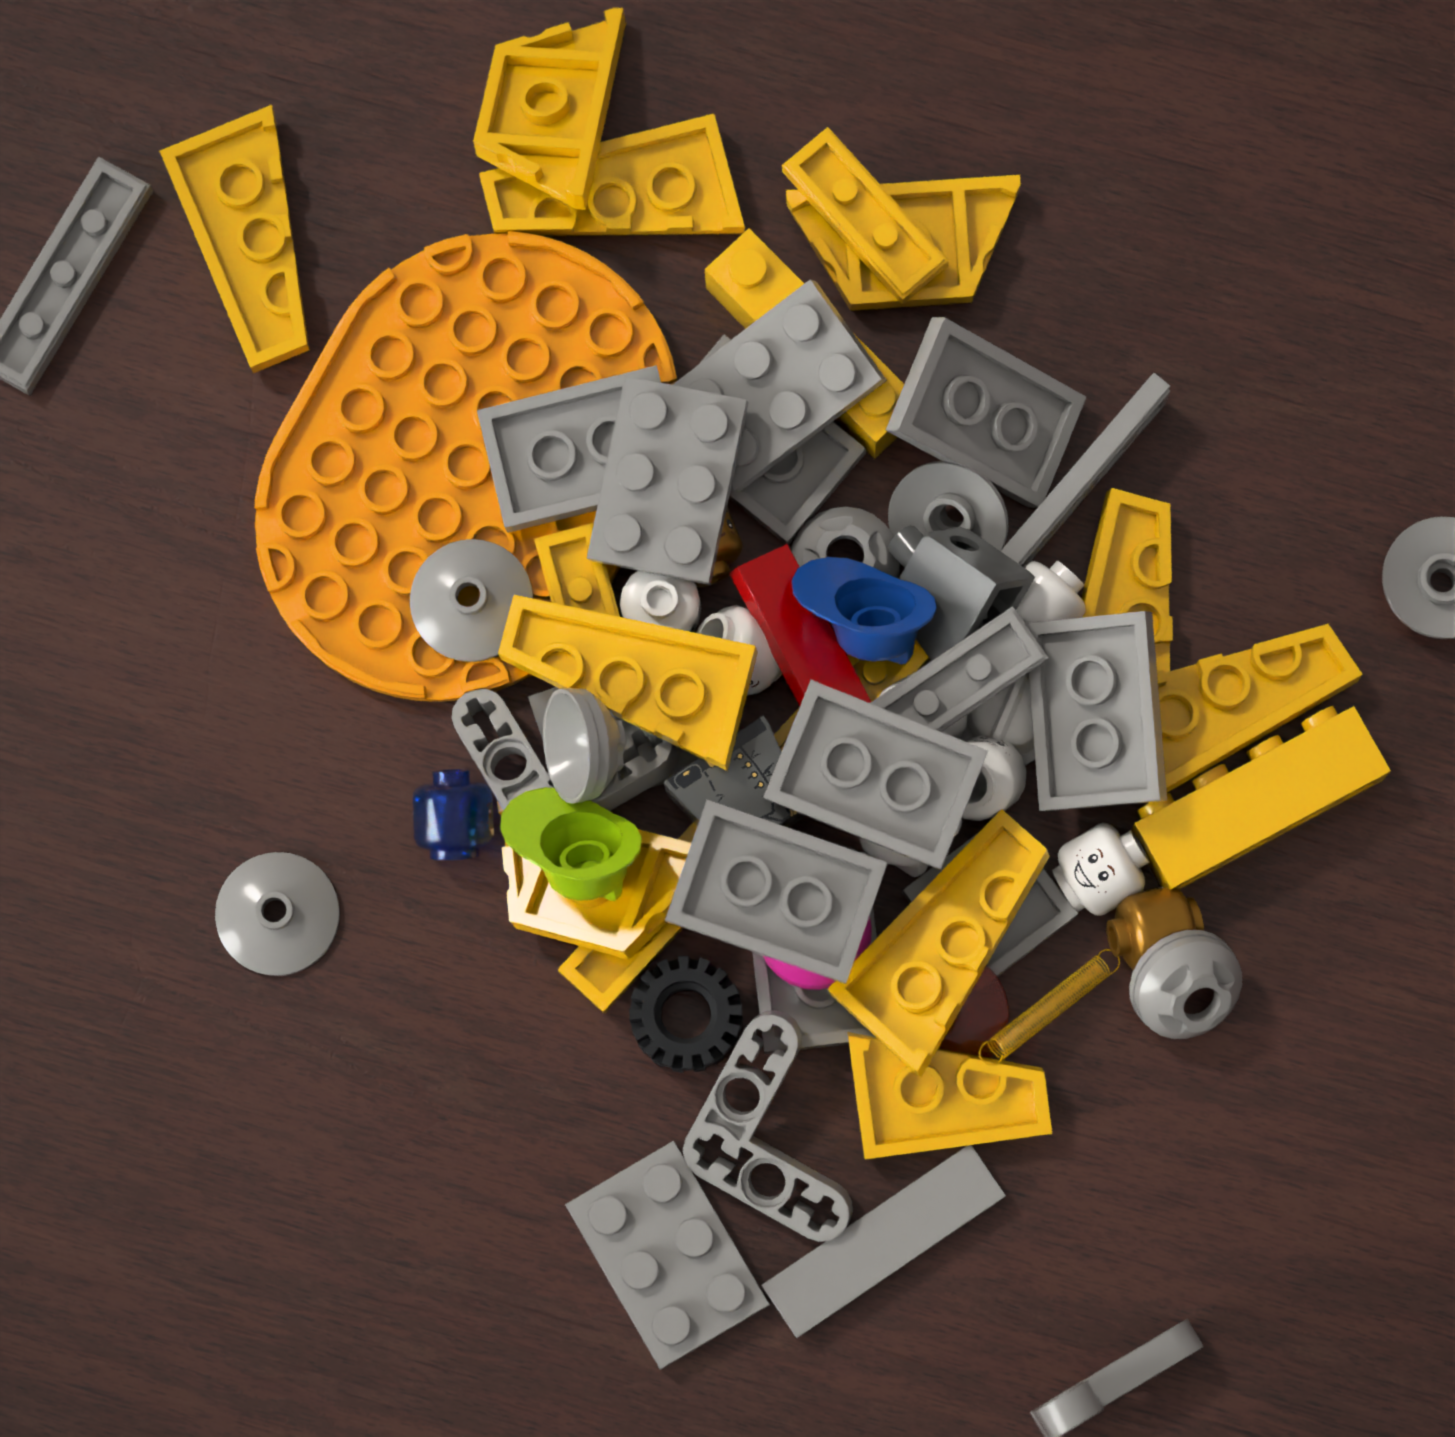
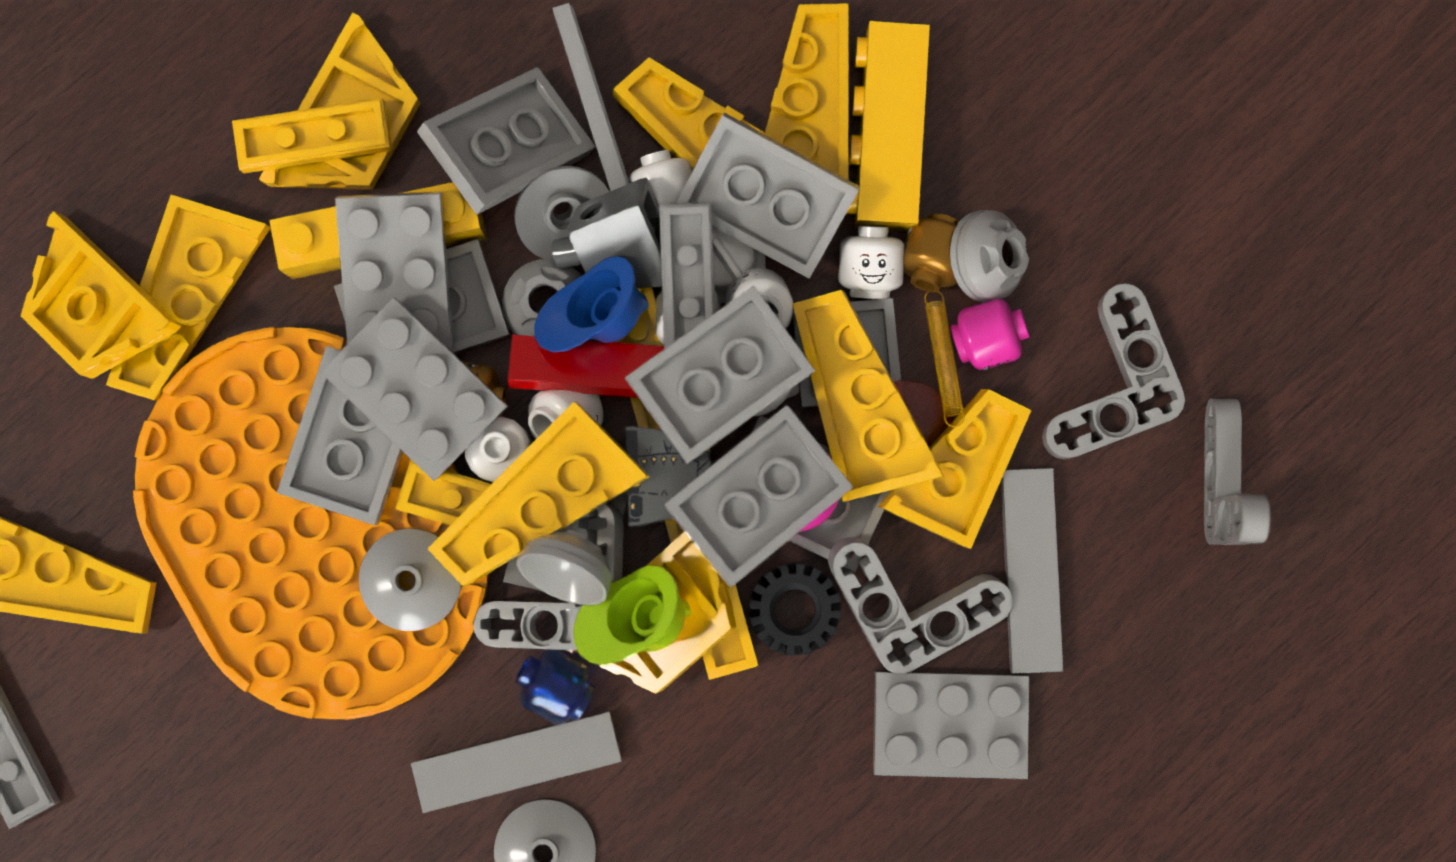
camera: 65 degrees left, 5 degrees up
(352, 827) = (516, 761): none -> light grey tile
(1105, 1039) = (989, 334): none -> dark pink head
(1160, 1232) = (1138, 380): none -> light grey beam

